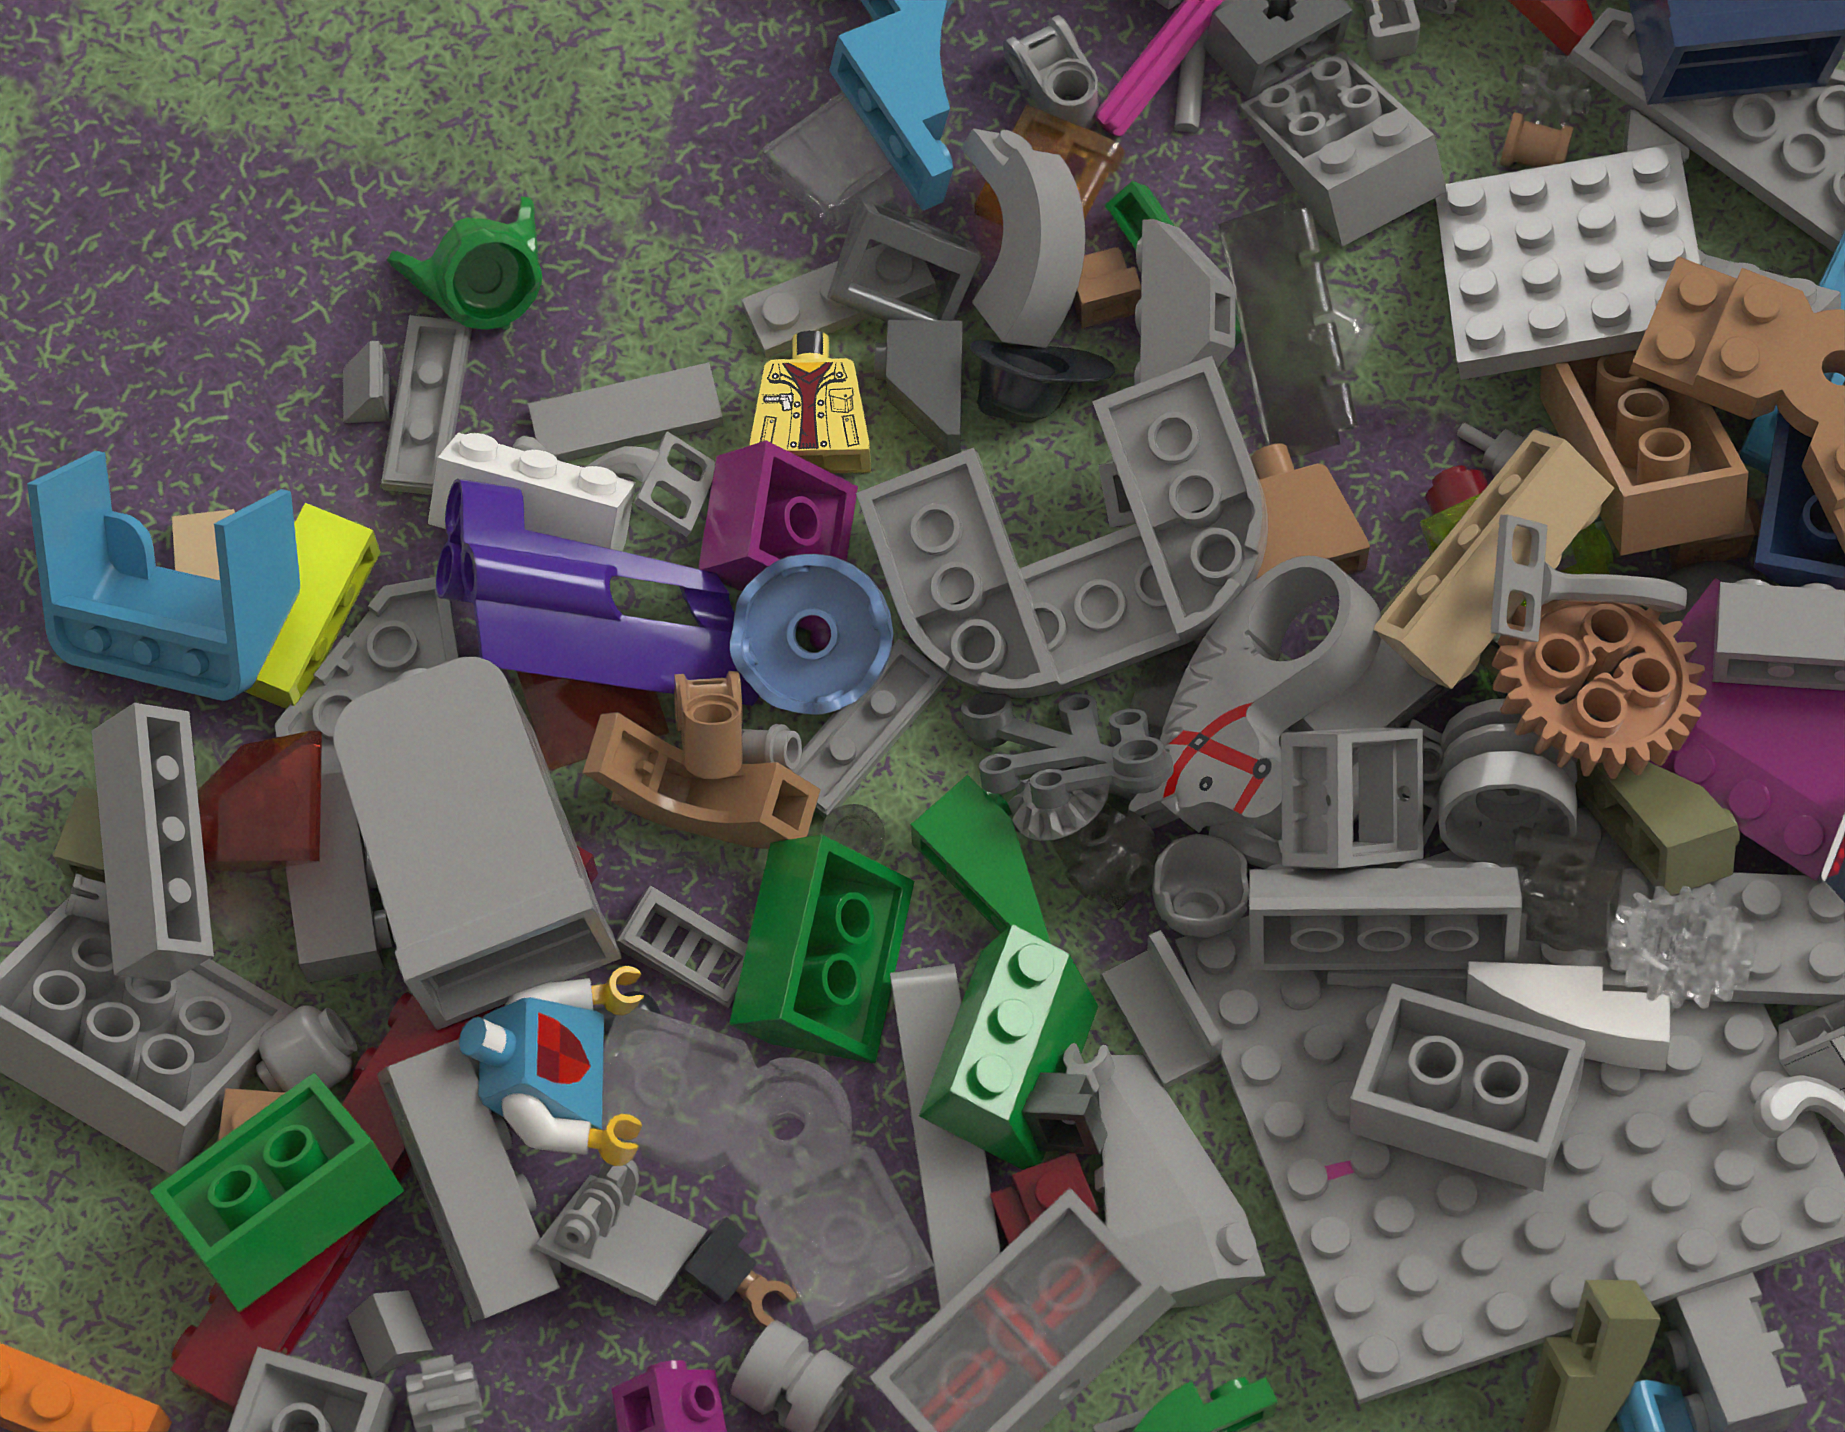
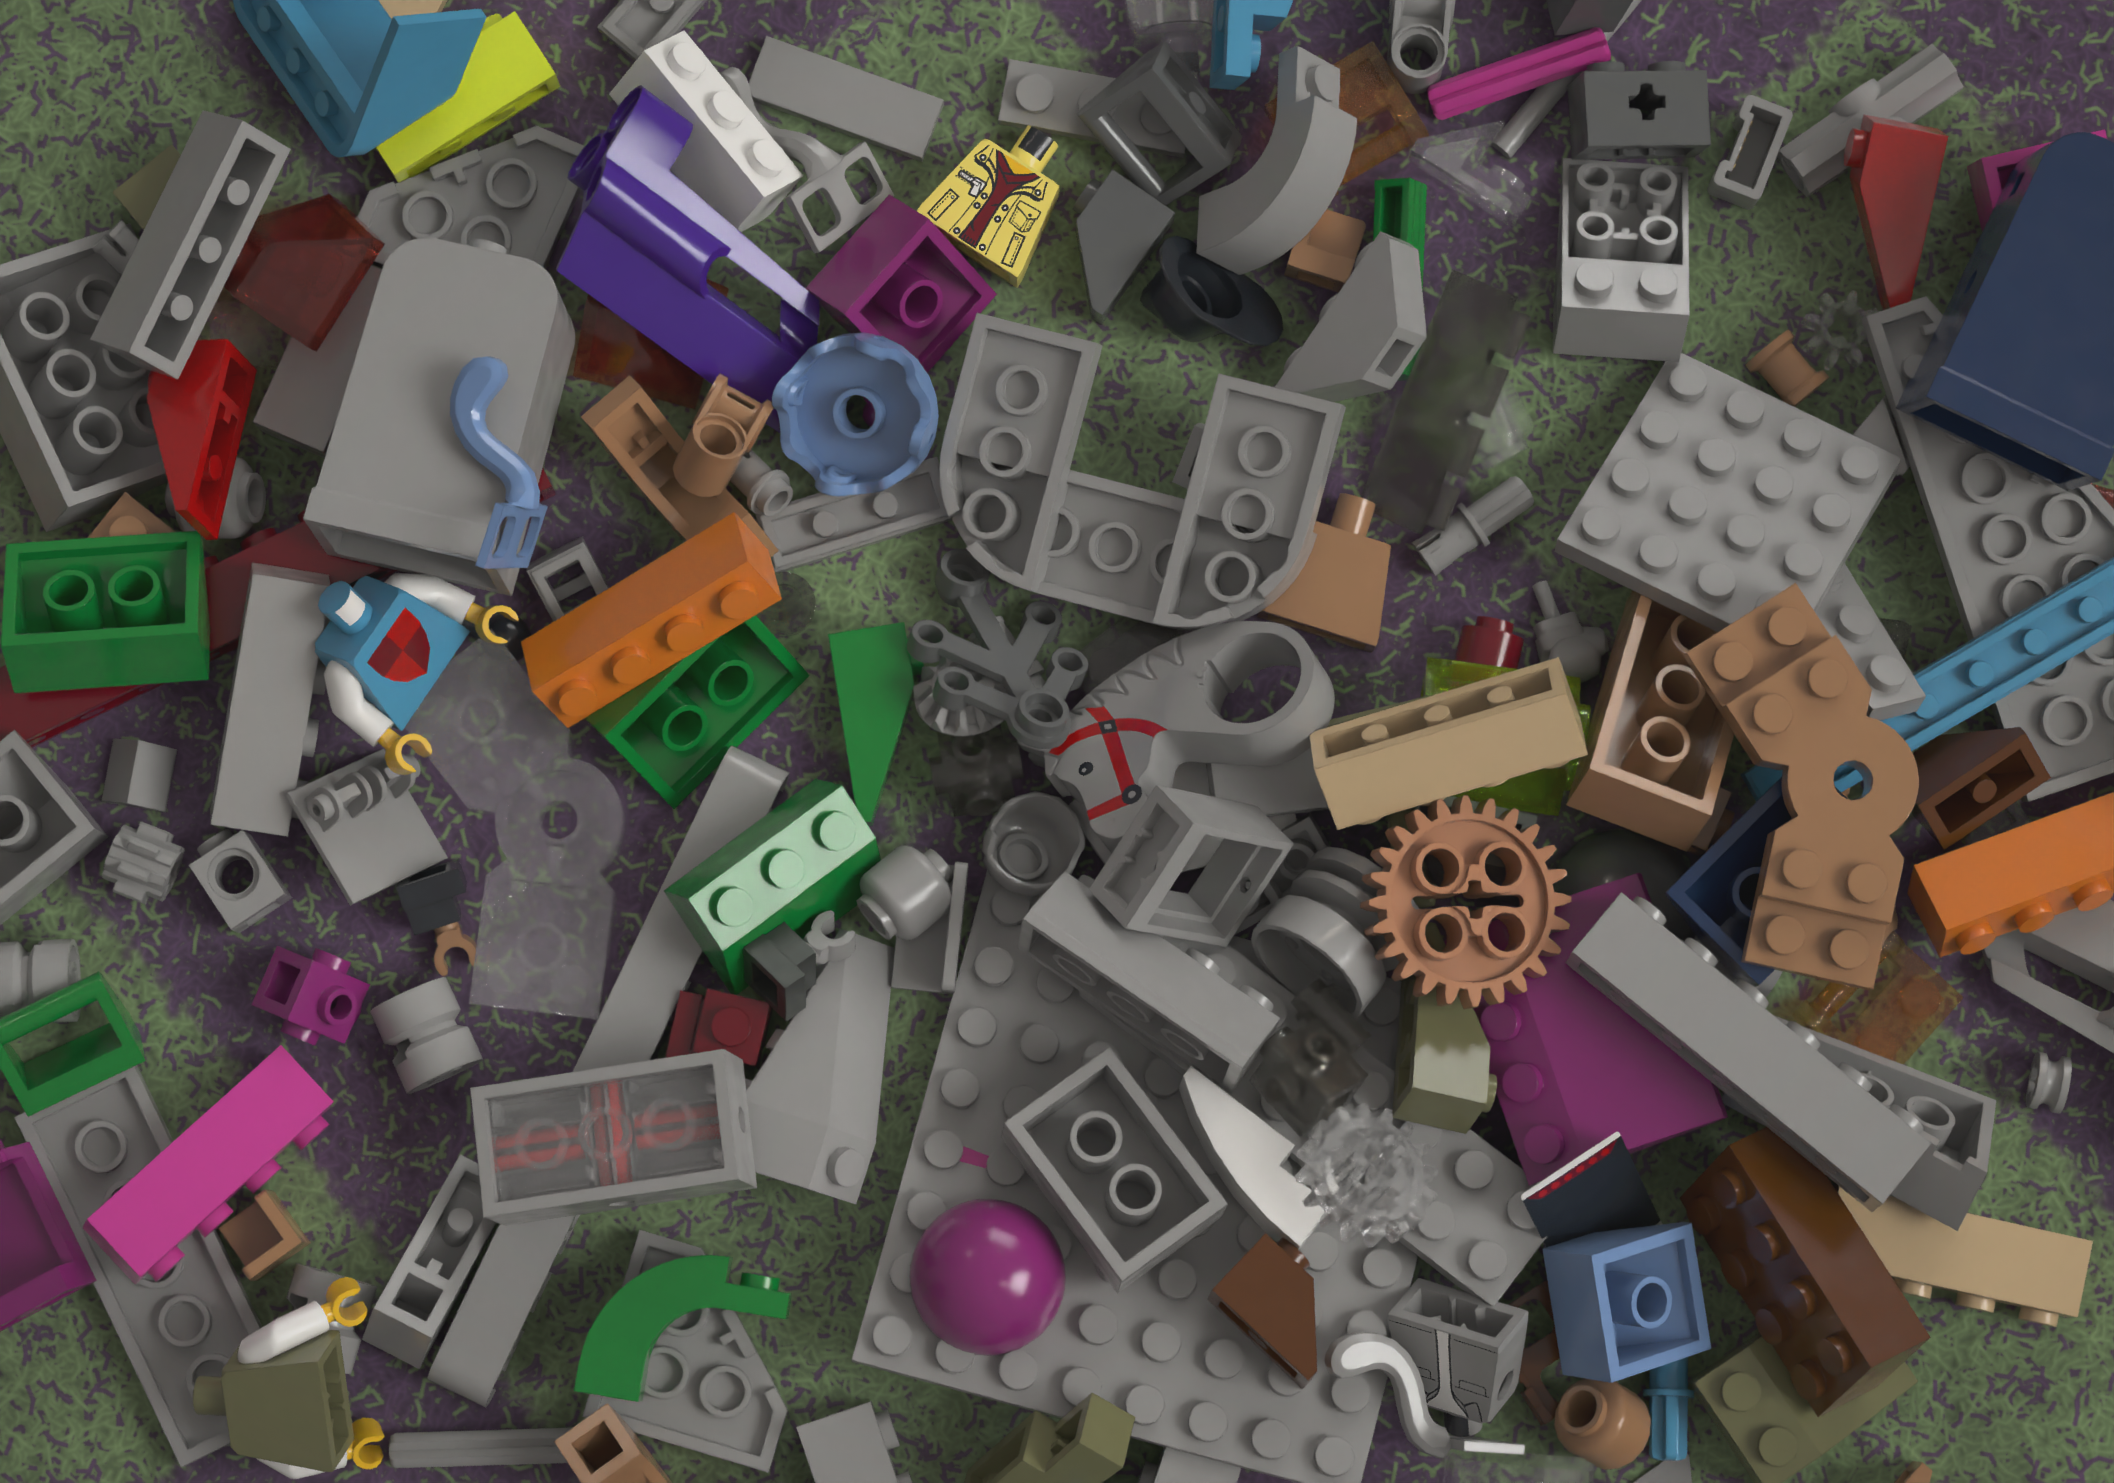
camera: 25 degrees right, 15 degrees up
(257, 988) = (201, 429): none -> red slope
(484, 788) = (469, 400): none -> medium blue piece
(560, 1378) = (254, 903): none -> light grey brick
(754, 900) = (650, 620): none -> orange brick
(1124, 990) = (905, 892): none -> light grey head
(1163, 156) = (1456, 163): none -> clear slope
(1375, 415) = (1473, 524): none -> light grey axle
(1423, 1252) = (987, 1277): none -> magenta piece
(1543, 584) = (1468, 798): light grey piece -> none
(1686, 1113) = (1273, 1305): none -> reddish brown slope

